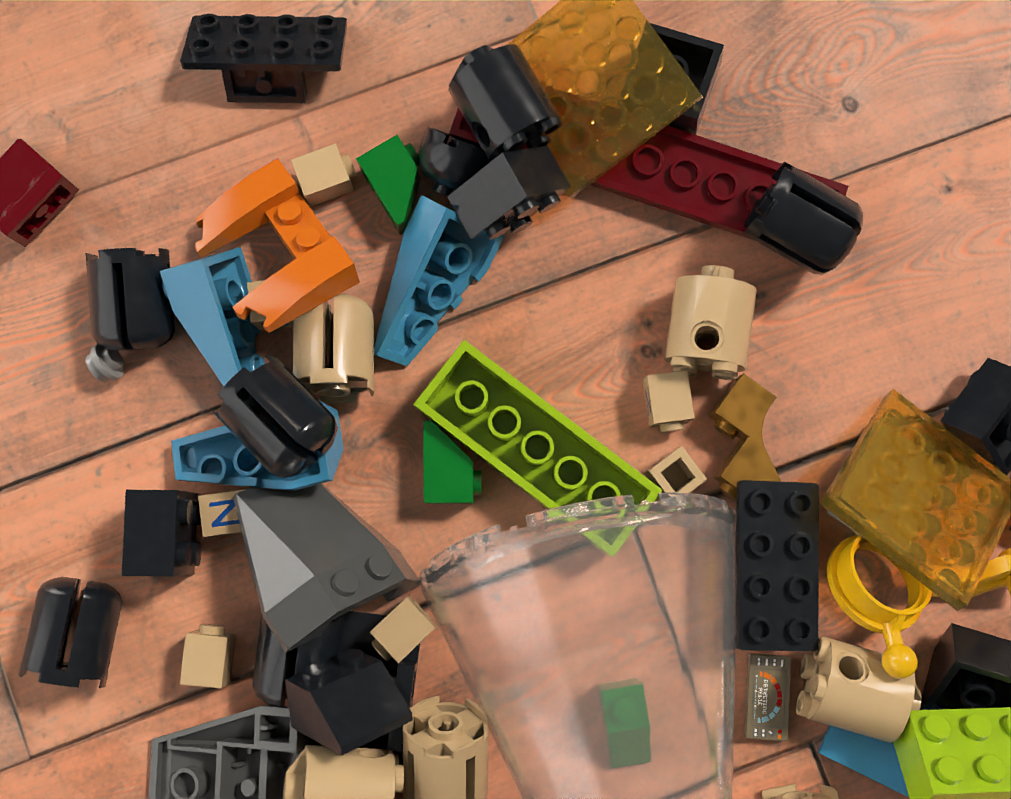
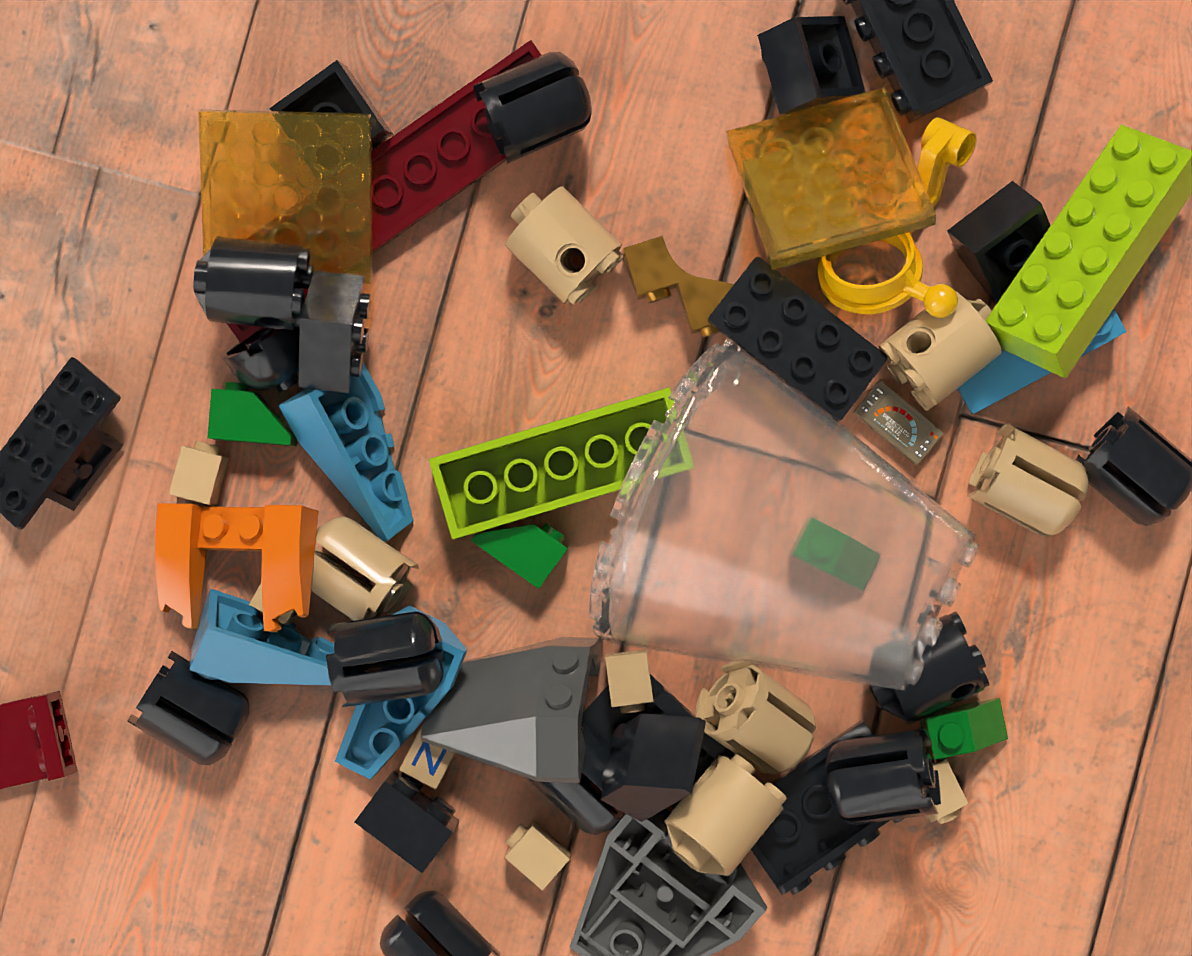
camera: 45 degrees left, 5 degrees up
(105, 363) = (229, 771): light grey plate -> none
(668, 400) = (601, 325): tan brick -> none
(676, 473) = (665, 365): tan brick -> none

